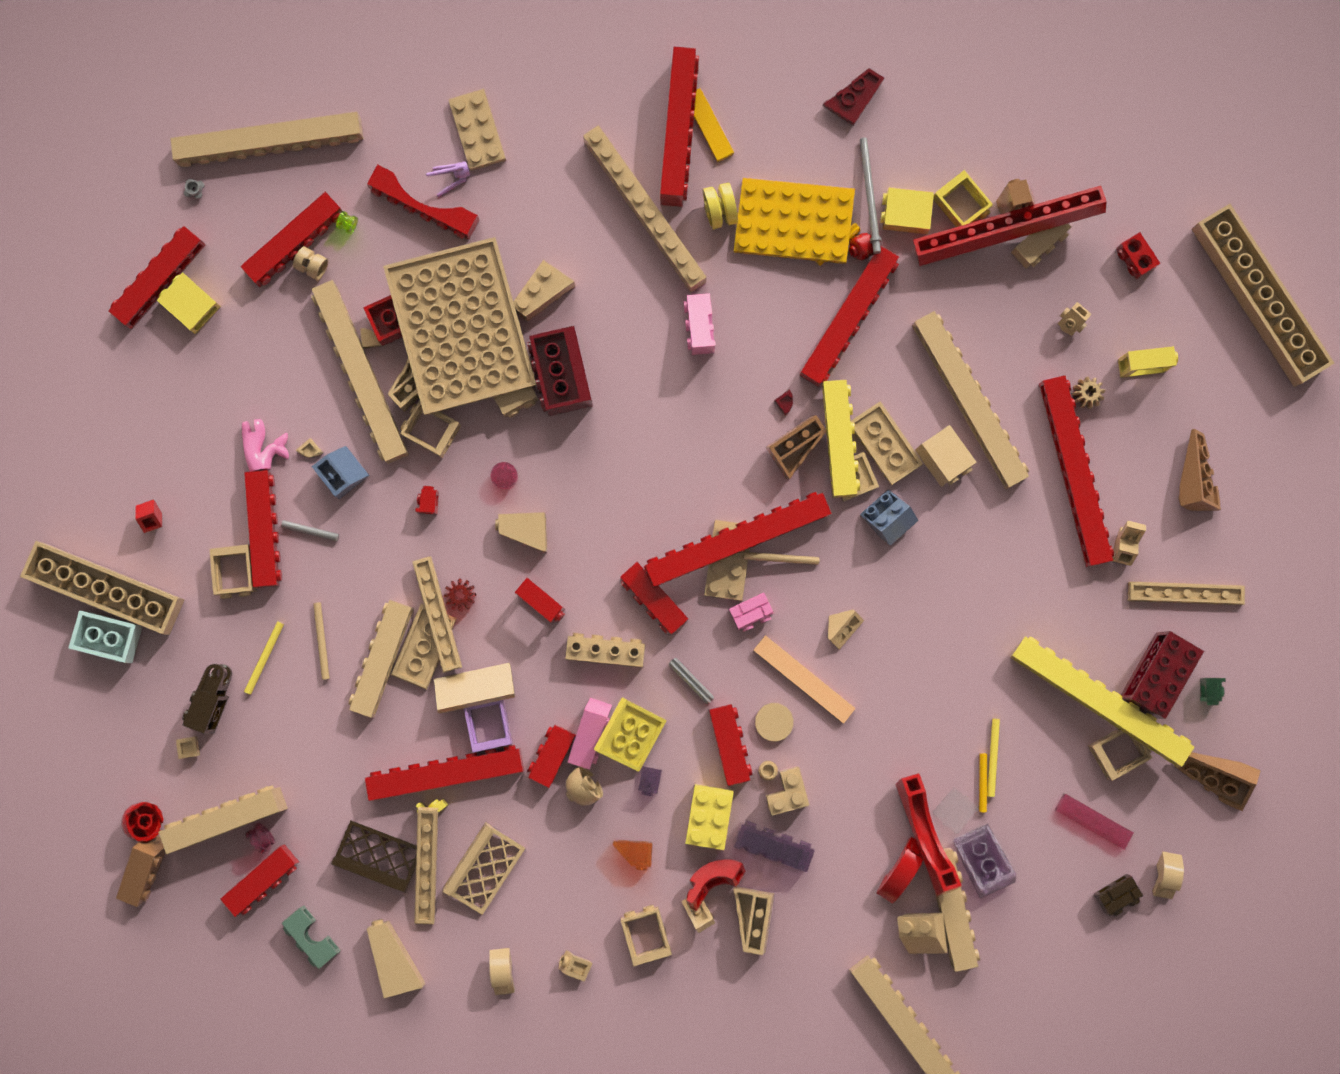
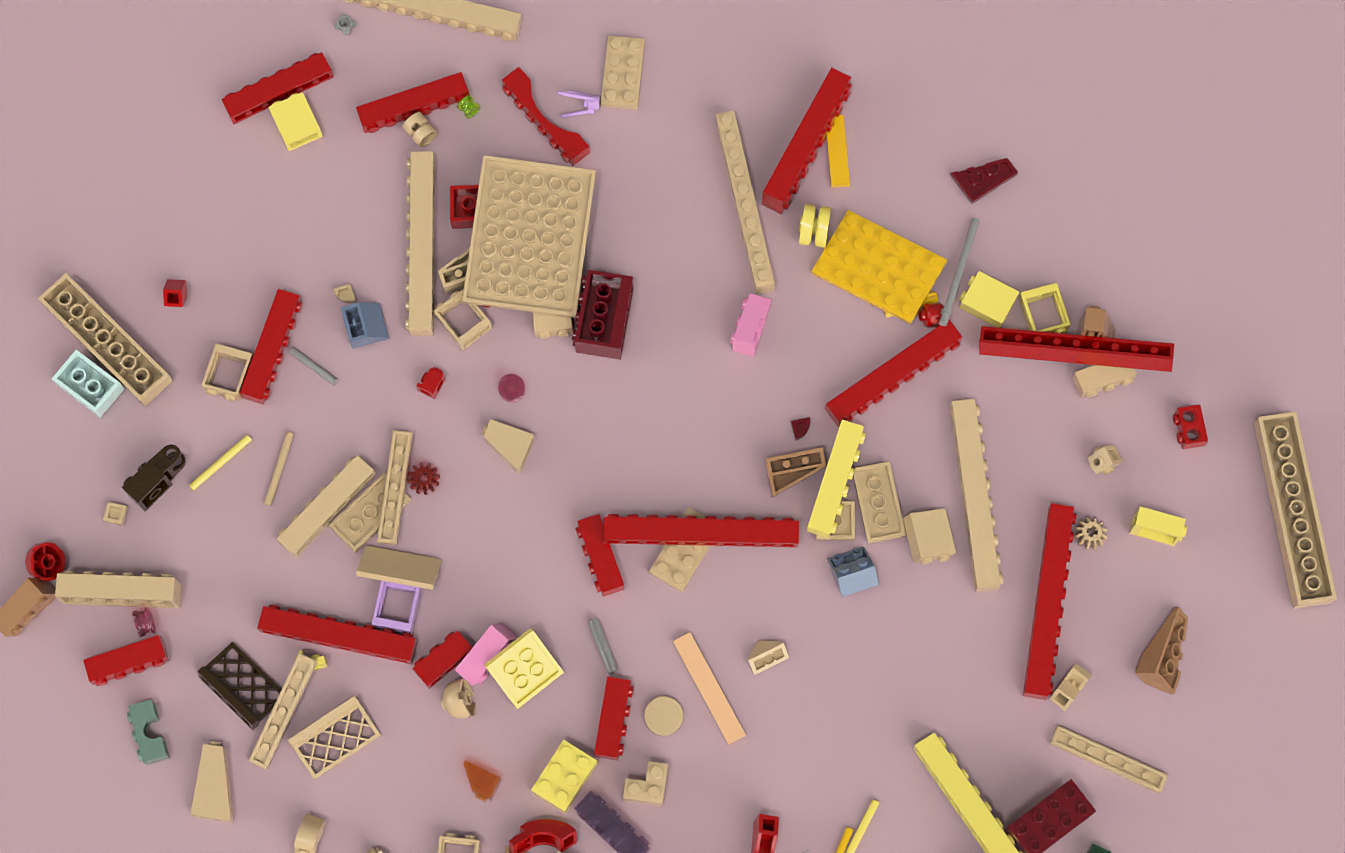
camera: 25 degrees right, 10 degrees down
(253, 443) = (297, 267): bright pink piece -> none
(369, 338) = (442, 217): tan tile -> none
(540, 601) = (494, 513): red window -> none
(541, 290) = (618, 236): tan wedge -> none
(605, 651) = (534, 584): tan brick -> none
(649, 781) = (523, 721): clear purple bracket -> none
(751, 611) = (685, 604): bright pink brick -> none
(768, 770) = (638, 758): tan plate -> none
(780, 558) = (735, 567): tan bar -> none

